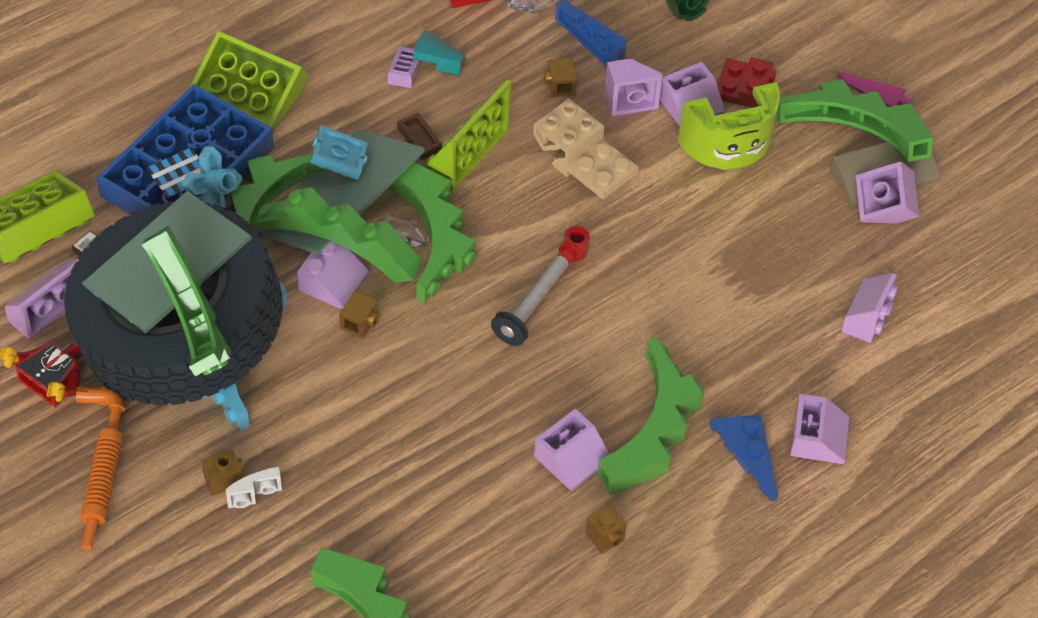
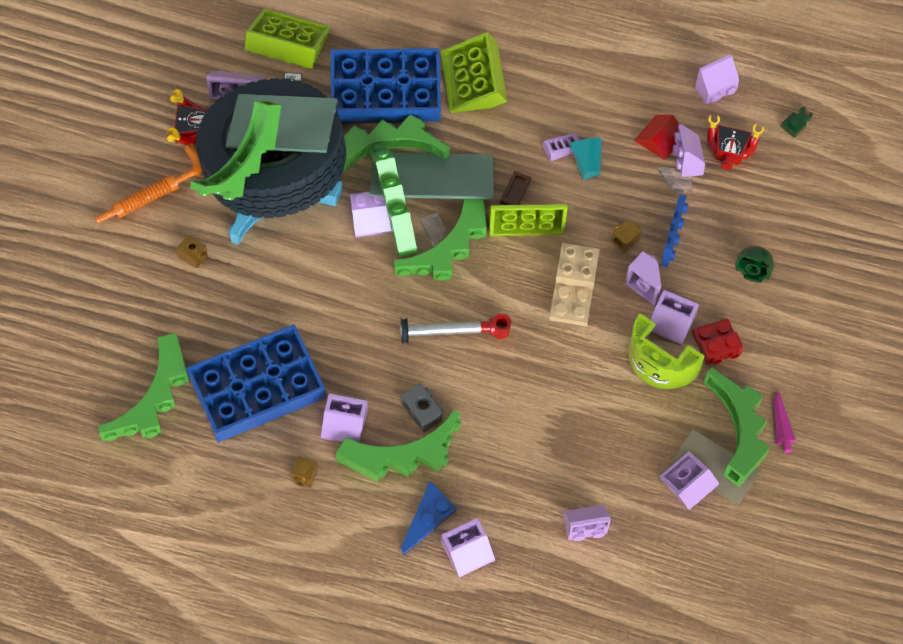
camera: 55 degrees right, 10 degrees up
(172, 171) = (368, 86): sticker -> none
(213, 180) = (370, 107): medium azure plant -> none
(244, 490) = (192, 272): white slope -> none
(339, 152) = (452, 155): medium azure plate -> none
(359, 314) = (354, 246): pearl gold brick -> none
(454, 508) = (256, 383): none -> blue brick
(605, 380) = (426, 417): none -> dark grey brick

